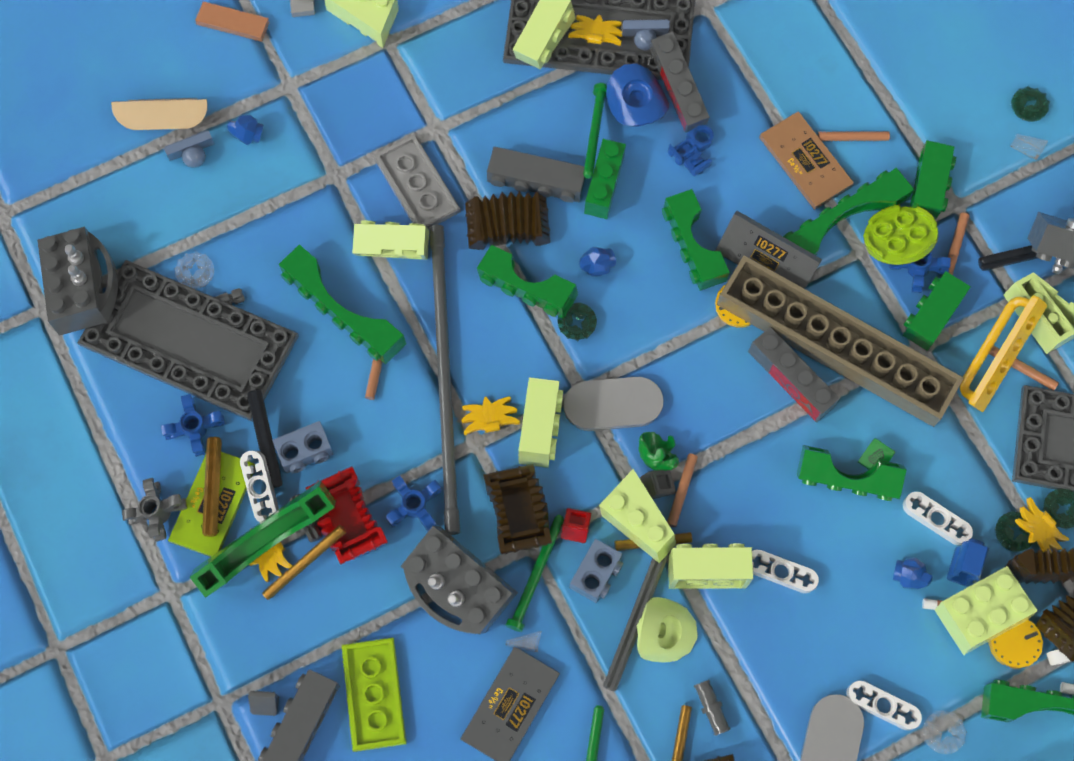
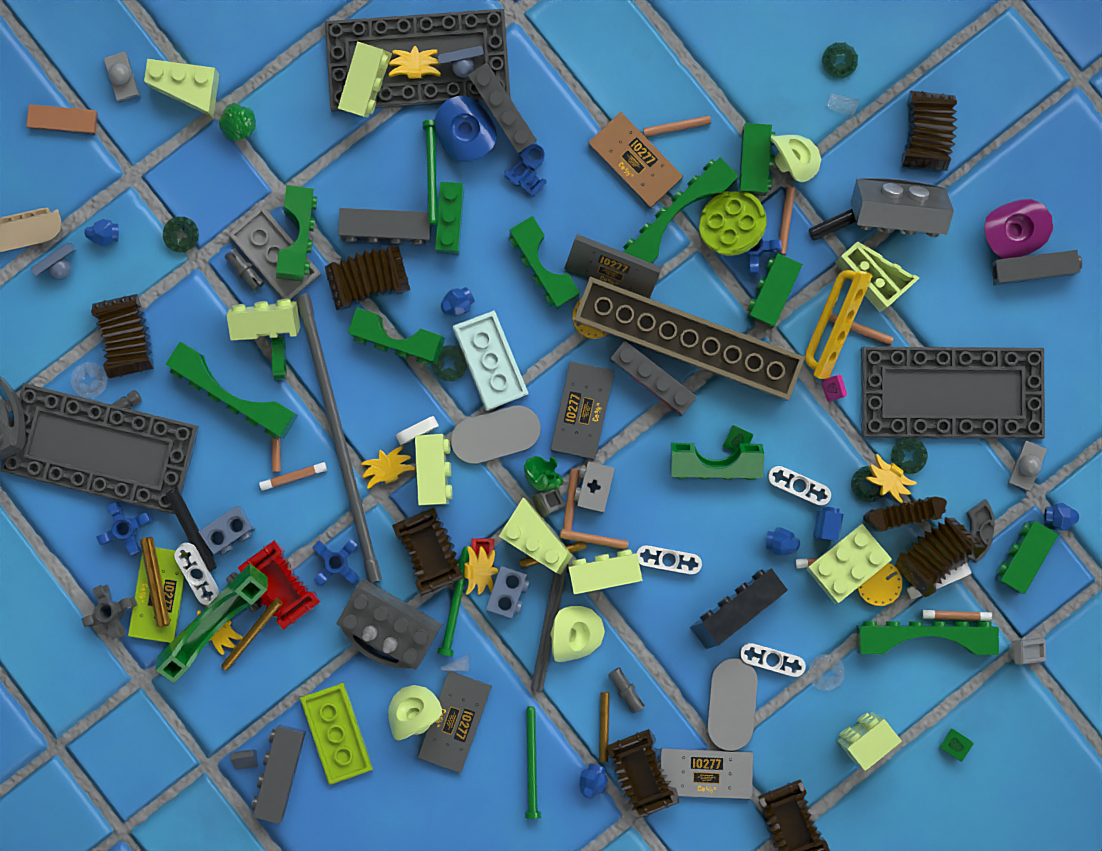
camera: 10 degrees left, 15 degrees up
(242, 233) = (124, 336): none -> dark brown piece
(321, 138) = (176, 225): none -> clear green gear
(382, 191) = (244, 269): none -> dark grey pin
(386, 406) = (293, 476): none -> nougat bar
(398, 283) = (279, 363): none -> green beam
(406, 51) = (237, 122): none -> green hair
(434, 185) = (292, 260): none -> green arch
(465, 683) = (413, 711): none -> yellowish green hat
(519, 384) = (418, 429): none -> white beam
(570, 541) = (479, 570): none -> yellow piece
(621, 327) = (490, 360): none -> light aqua tile
(699, 531) = (594, 539): none -> nougat bar
(709, 490) = (597, 500): none -> light grey brick
(711, 396) = (582, 410): none -> dark grey tile
(852, 637) = (738, 609): none -> black wedge
(975, 183) = (797, 156): none -> yellowish green hat
(989, 421) = (834, 388): none -> dark pink slope

